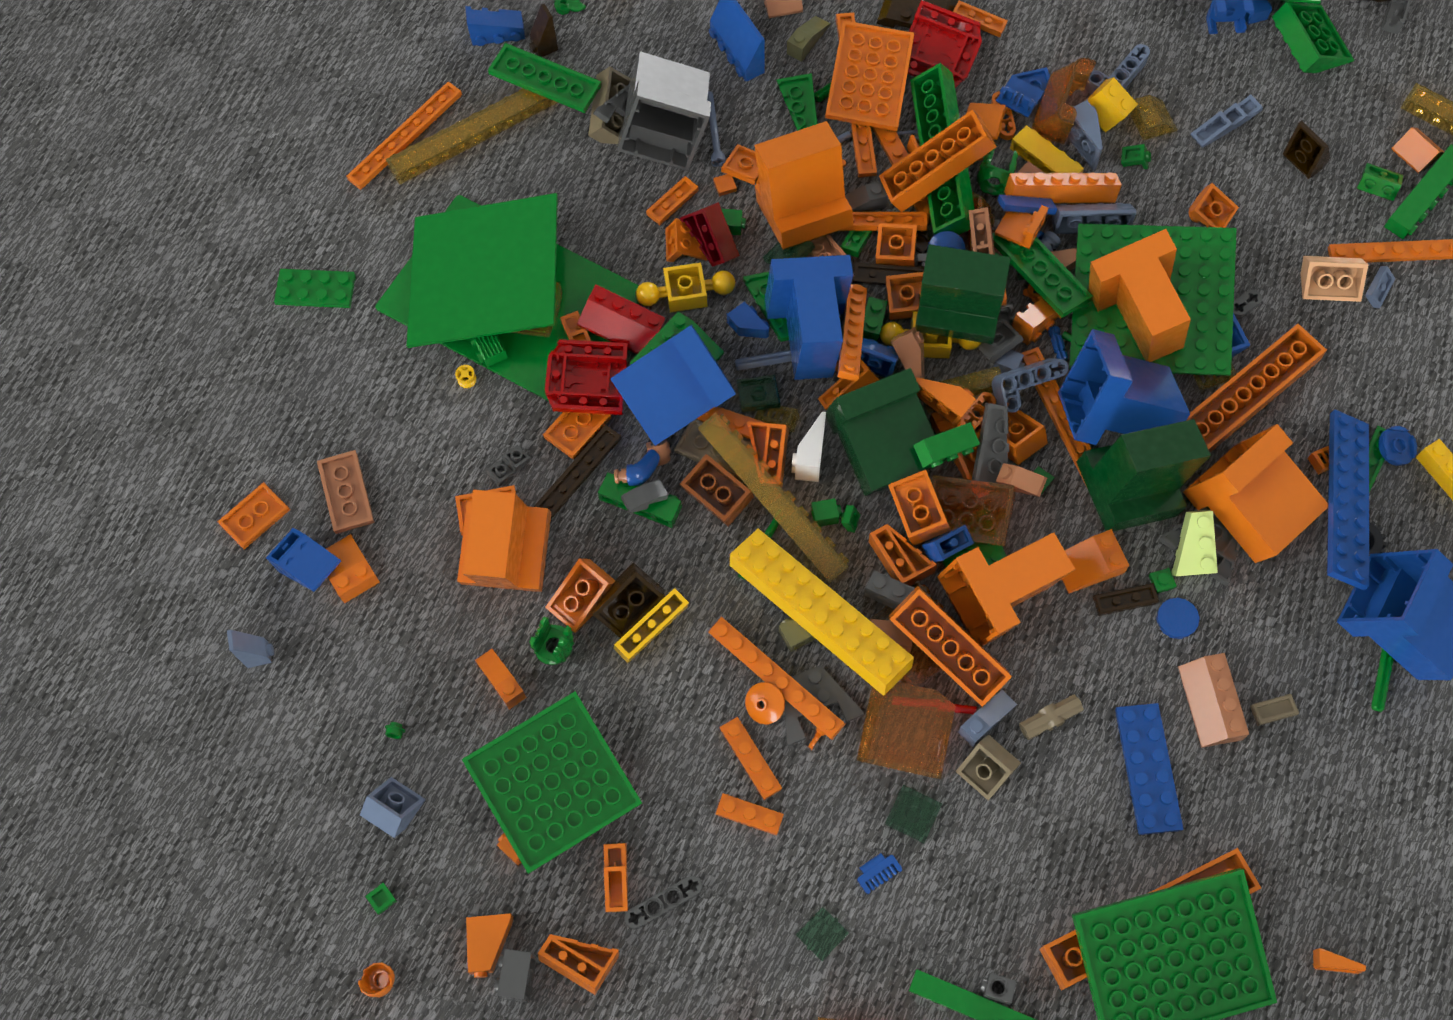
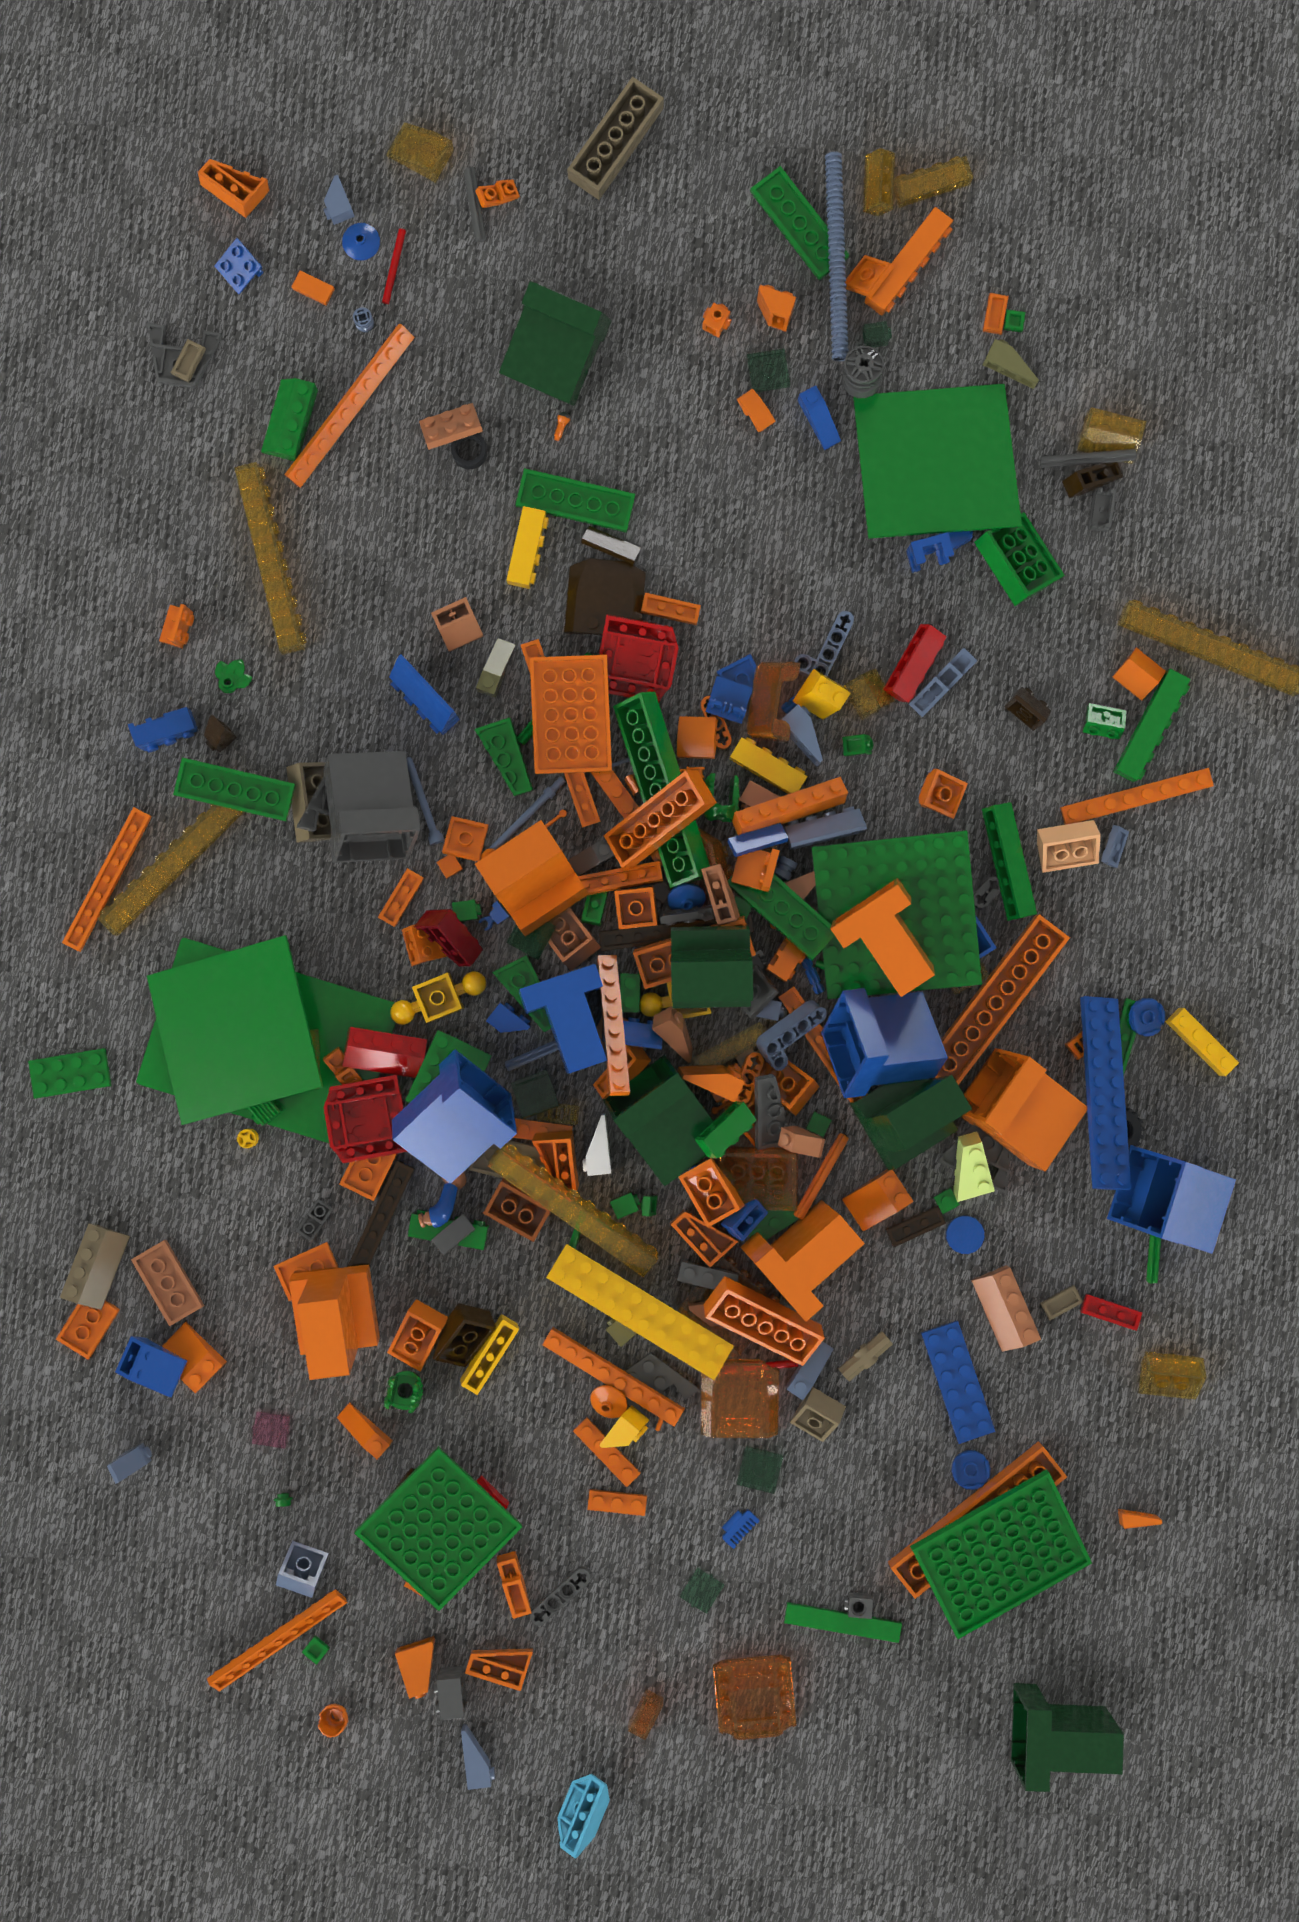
camera: 15 degrees left, 20 degrees up
(279, 458) = (95, 1266): none -> dark tan slope
(342, 878) = (277, 1640): none -> orange plate
(403, 658) = (270, 1430): none -> clear pink piece
(762, 230) = (498, 915): none -> blue piece
(776, 728) = (627, 1429): none -> yellow slope
(1035, 525) = (821, 1176): none -> orange axle
(1149, 867) = (967, 1463): none -> blue tile
(1202, 98) = (915, 663): none -> red brick
(1272, 278) = (1009, 861): none -> green brick
(1329, 729) = (1111, 1312): none -> red plate
(1391, 812) = (1171, 1375): none -> clear yellow slope

